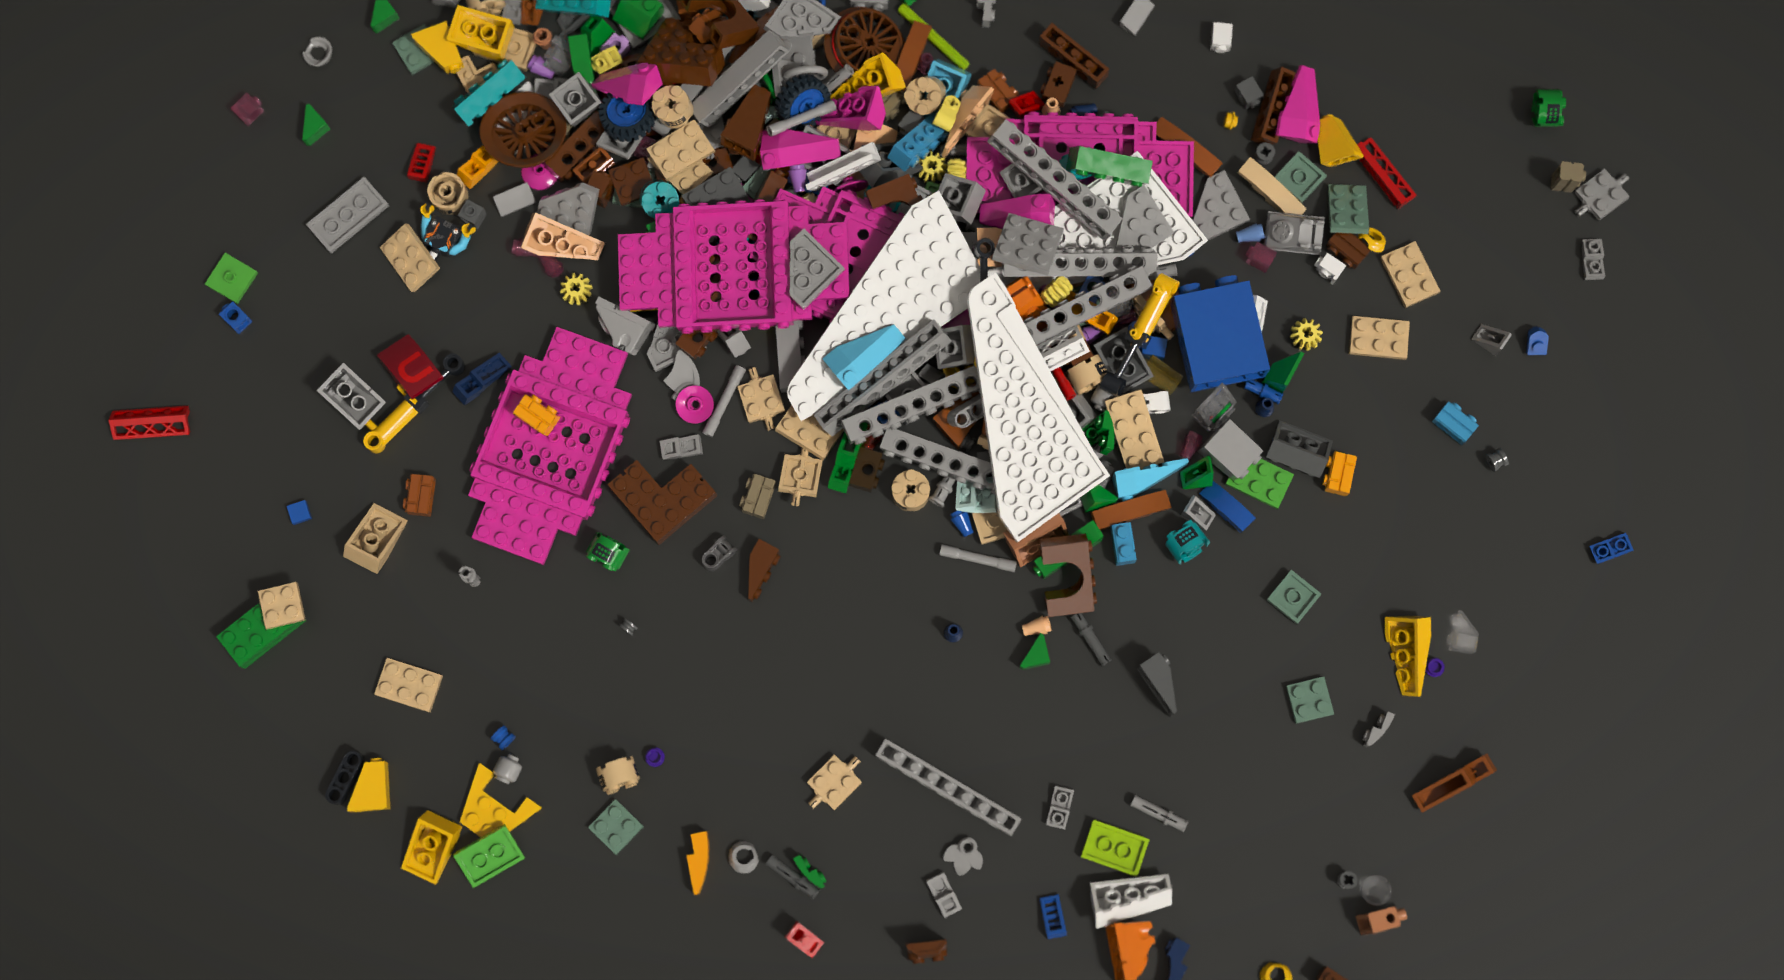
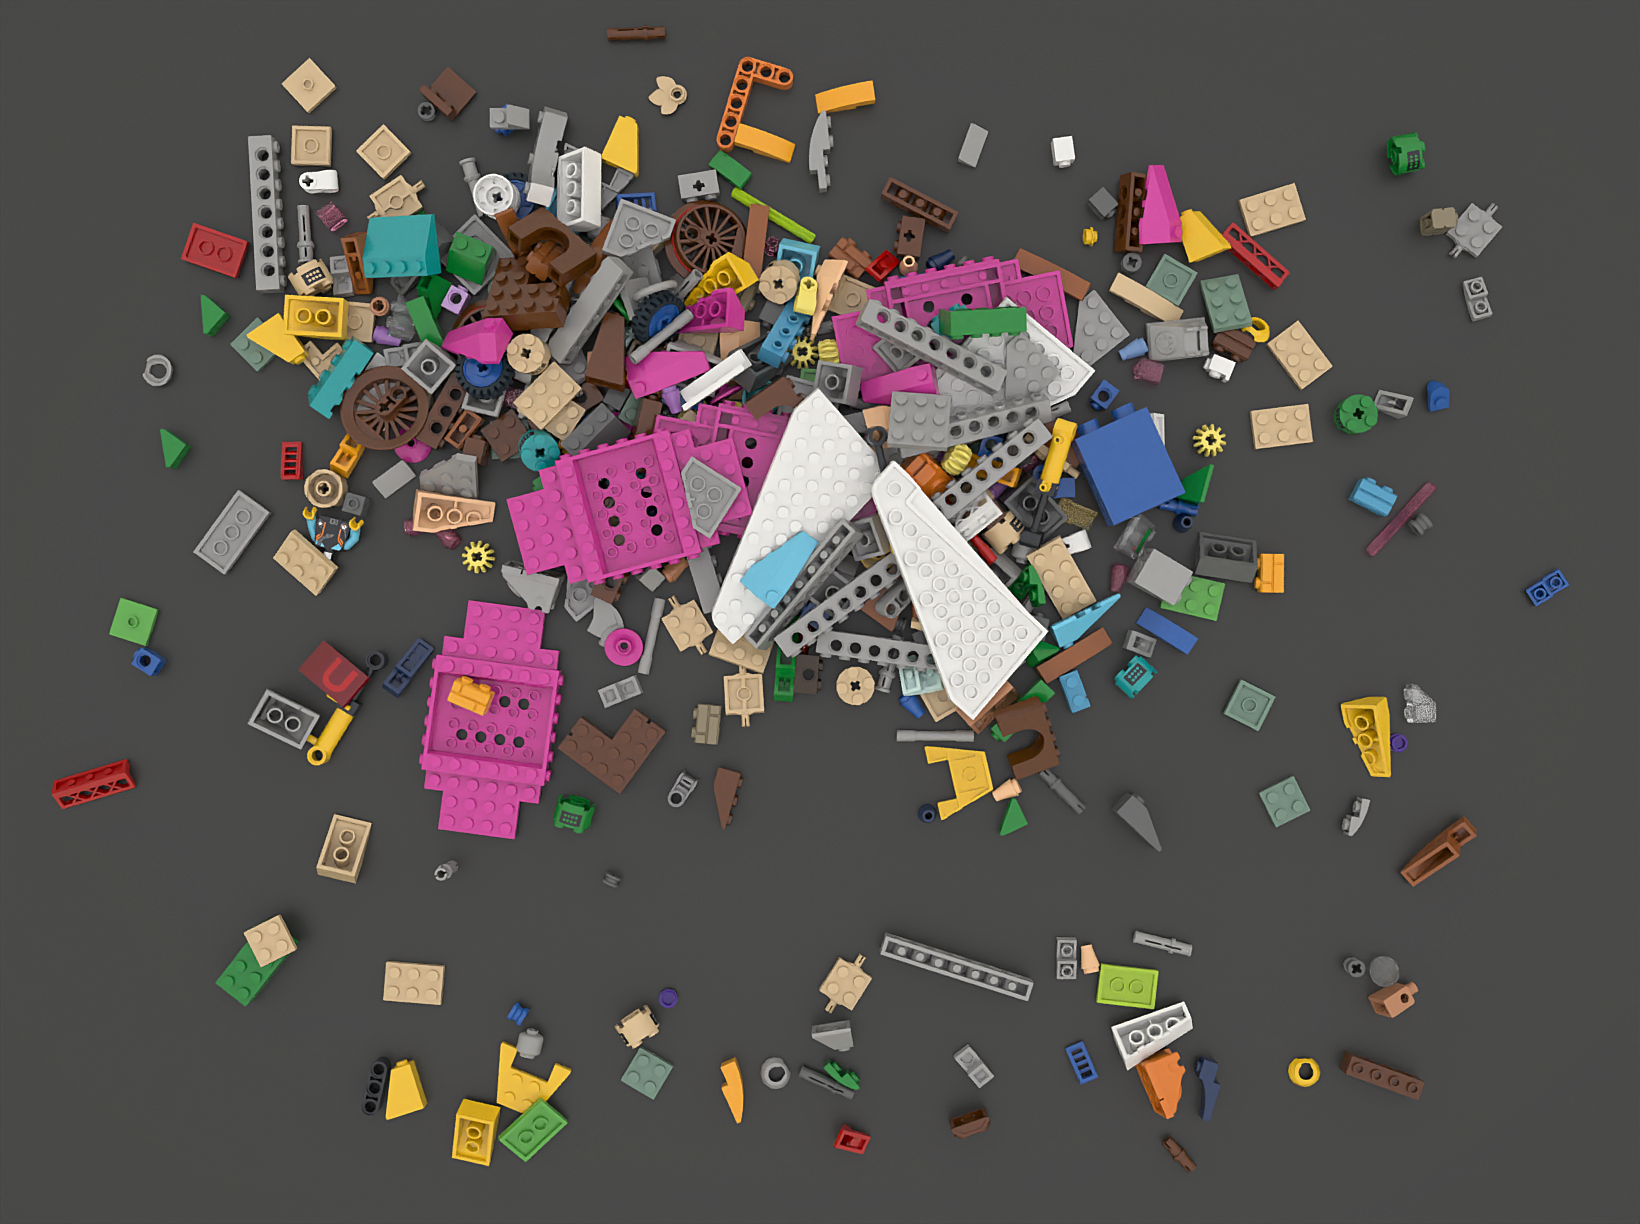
camera: 20 degrees left, 10 degrees up
(248, 108) = (103, 446): clear pink brick -> none
(299, 512) = (264, 839): blue tile -> none
(420, 495) = (377, 797): dark orange brick -> none
(606, 60) = (446, 318): light yellow brick -> none
(761, 342) = (673, 571): none -> nougat cone
(813, 830) = (834, 1035): none -> light grey slope
(964, 859) = (985, 1027): light grey plate -> none
(1003, 603) = (968, 773): none -> yellow wing
(1082, 813) = (1089, 960): none -> light nougat cone
(1198, 474) = (1131, 606): green slope -> none
(1216, 263) = (1109, 390): none -> blue brick
(1410, 134) = (1271, 210): none -> tan plate
(1461, 333) = (1358, 404): none -> green brick
(1479, 451) = (1401, 519): none -> clear pink axle

